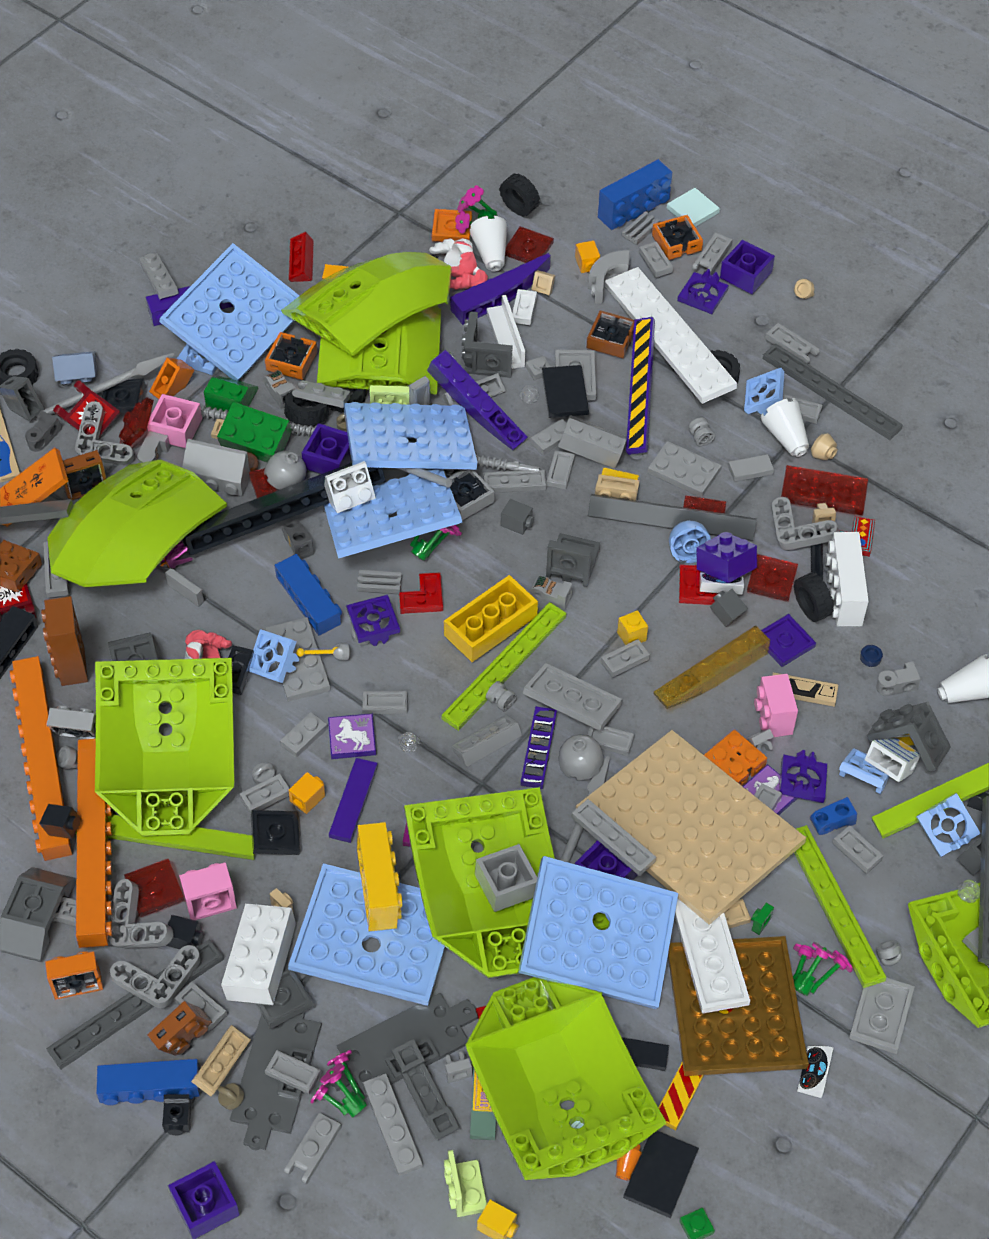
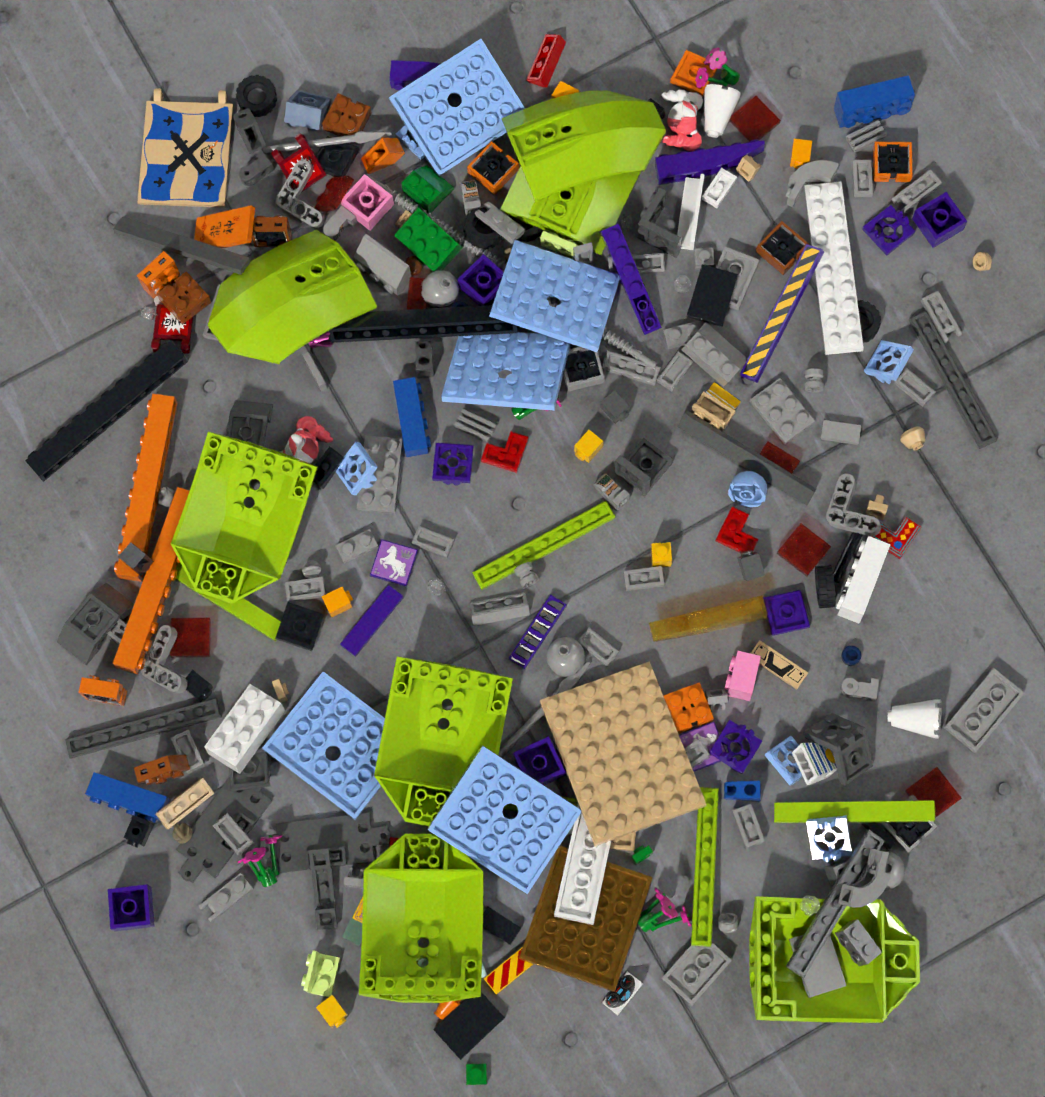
camera: 30 degrees right, 20 degrees up
(64, 641) = (195, 397): dark orange brick -> none
(71, 723) = (176, 470): light grey piece -> none
(118, 358) = (346, 117): none -> dark orange piece
(157, 985) = (159, 722): light grey beam -> none
(158, 275) = (411, 39): light grey plate -> none
(208, 891) = (226, 660): bright pink brick -> none
(339, 651) = (414, 481): hinge -> none
(349, 487) = (479, 336): white slope -> none
(378, 876) = (354, 705): yellow brick -> none
(392, 1124) = (289, 903): light grey plate -> none
(428, 476) = (553, 351): light grey bar -> none
(490, 618) = (548, 500): yellow brick -> none
(506, 877) = (453, 745): light grey brick -> none
(507, 559) = (588, 446): none -> yellow brick
(527, 190) = (767, 64): black tyre -> none
(572, 696) = (583, 599): light grey plate -> none
(613, 837) = (551, 745): light grey plate -> none
(694, 205) = (925, 131): light aqua tile -> none
(714, 585) = (756, 539): white slope -> none
(726, 557) = (770, 519): dark purple brick -> none
(787, 425) = (890, 407): white cone -> none
(815, 487) = (892, 480): clear red plate -> none

